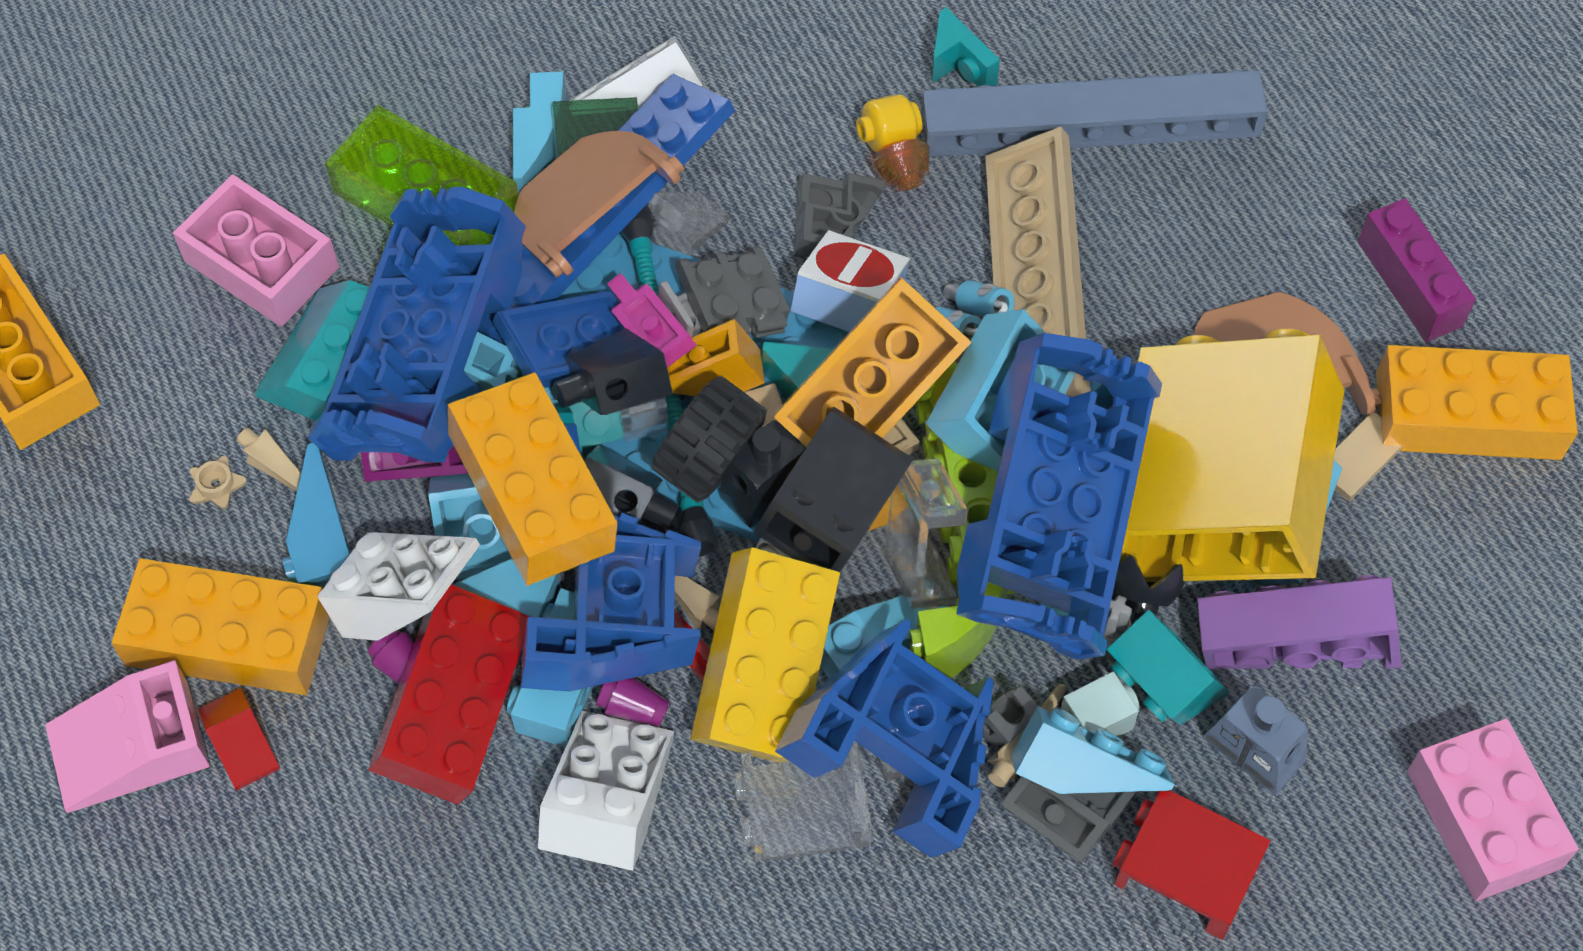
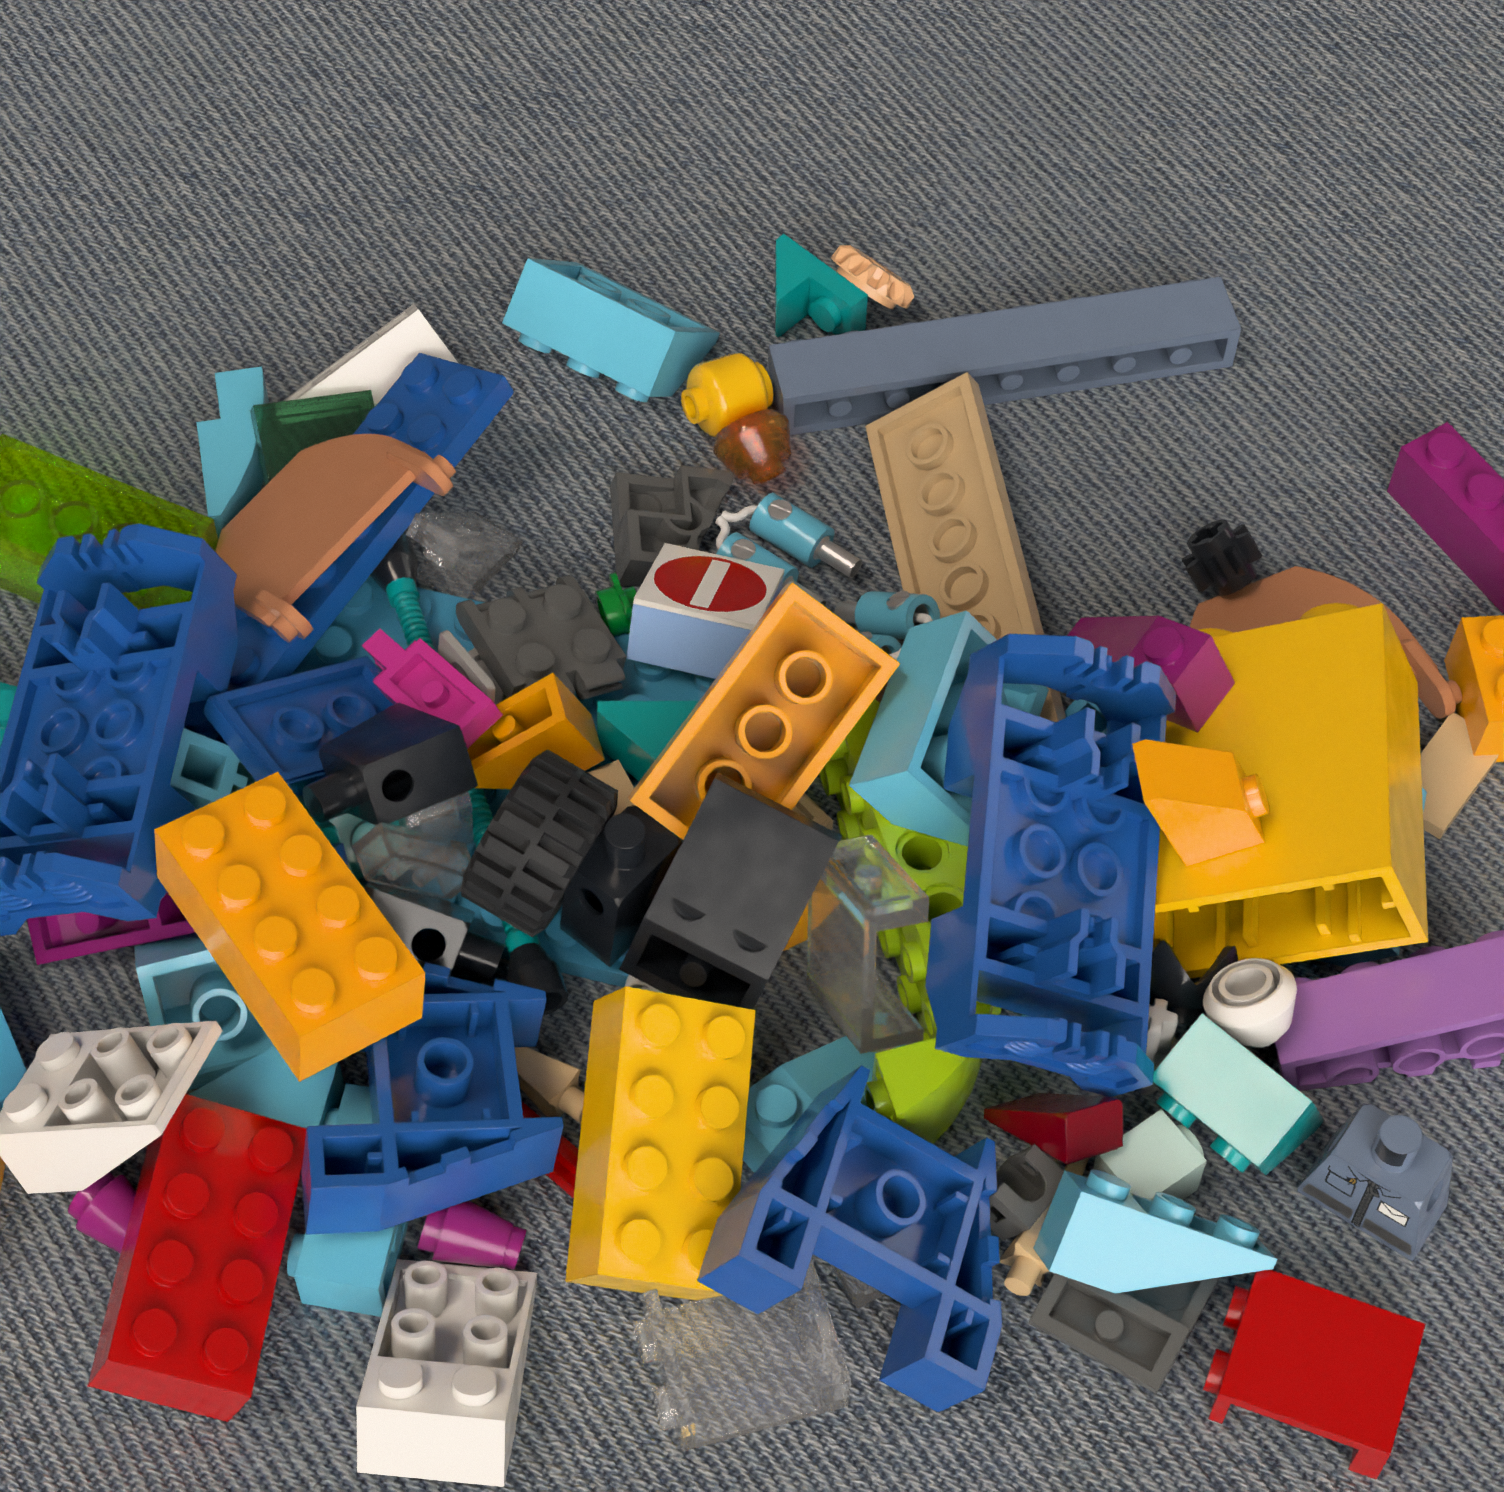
camera: 10 degrees left, 5 degrees down
(622, 440) = (412, 860): none -> clear piece
(788, 271) = (616, 606): none -> green plate
(811, 64) = (606, 328): none -> medium azure slope
(923, 231) = (790, 531): none -> medium azure piece
(1006, 45) = (872, 277): none -> light nougat gear
(1043, 673) = (1063, 1124): none -> dark red slope
(1165, 461) = (1200, 799): none -> light orange slope
(1168, 355) = (1184, 654): none -> magenta slope
(1186, 604) = (1252, 1001): none -> white cone
(1225, 281) = (1221, 557): none -> black gear

